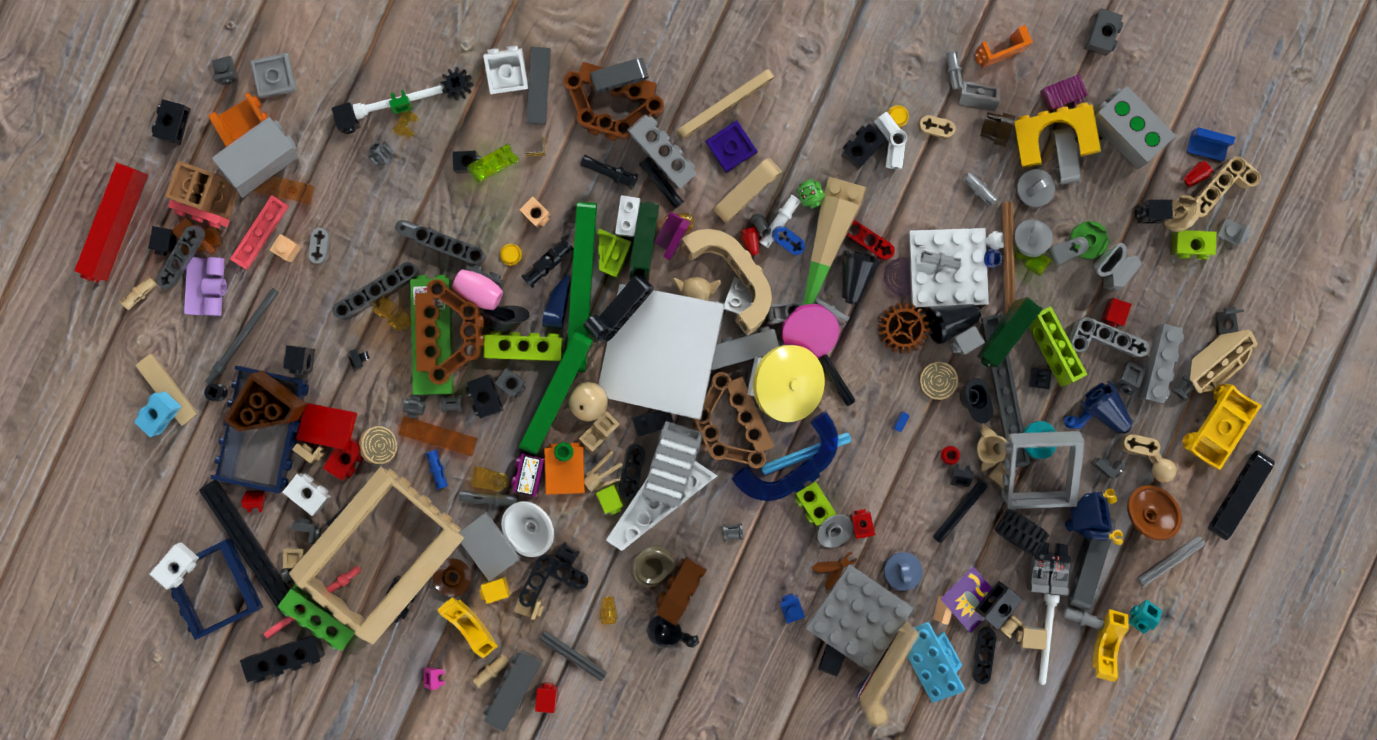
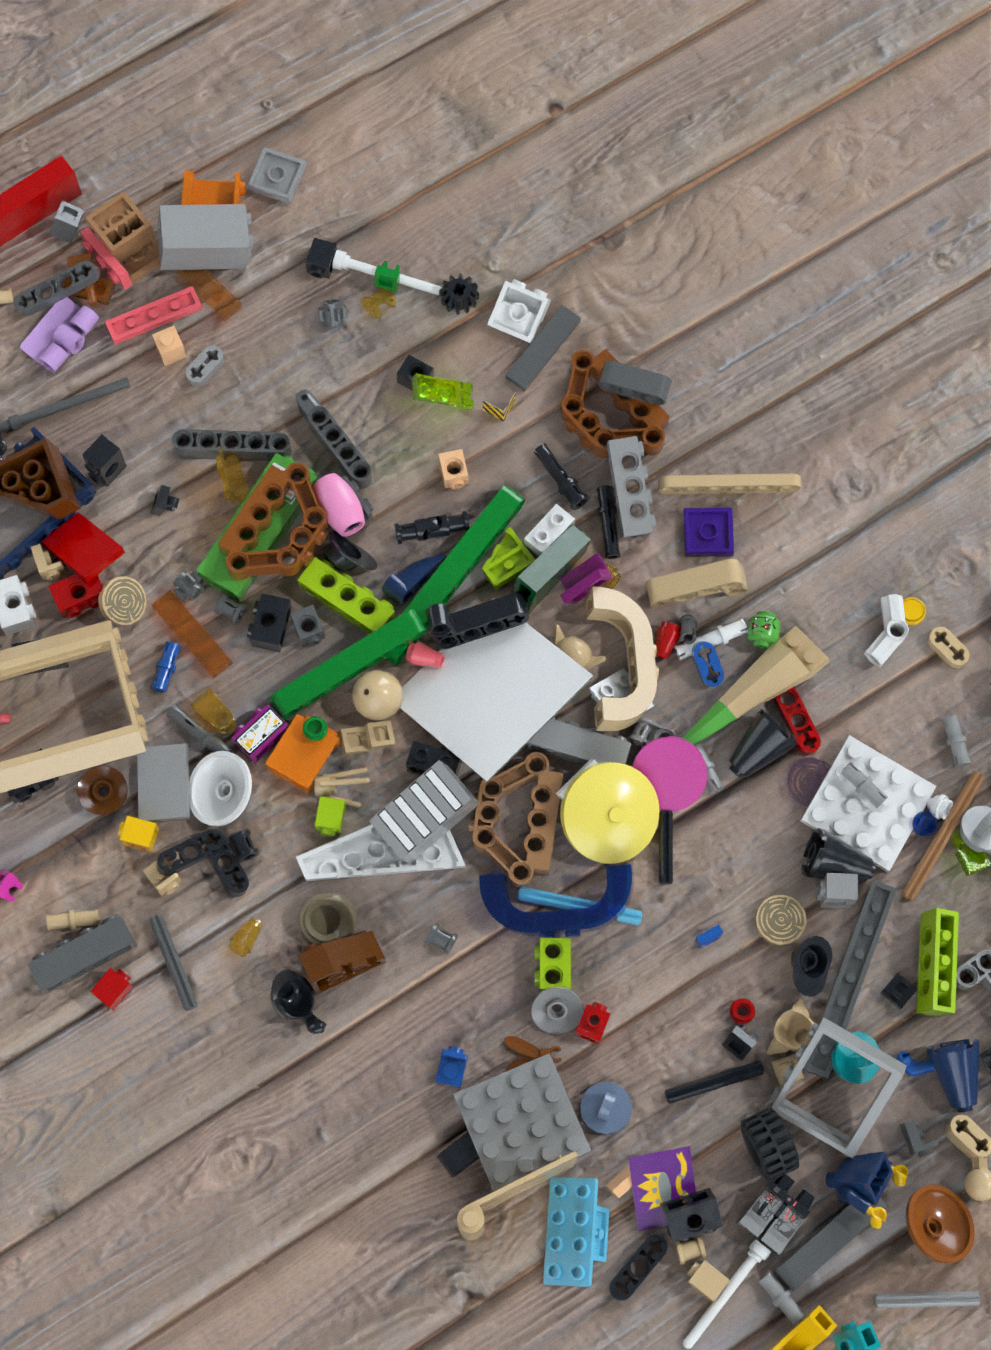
camera: 30 degrees right, 15 degrees down
(153, 204) = (66, 221): none -> dark grey brick
(162, 240) = (49, 261): black brick -> none
(175, 131) = (139, 168): black brick -> none
(224, 70) = (231, 141): dark grey bracket -> none
(469, 625) = (84, 851): yellow arch -> none
(511, 254) = (398, 497): yellow piece -> none
(598, 354) = (422, 655): none -> coral cone
(624, 484) = (382, 783): black beam -> none
(866, 149) = (856, 622): black brick -> none
(908, 335) = (787, 836): dark orange gear -> none
(1009, 331) = (892, 909): dark green slope -> none

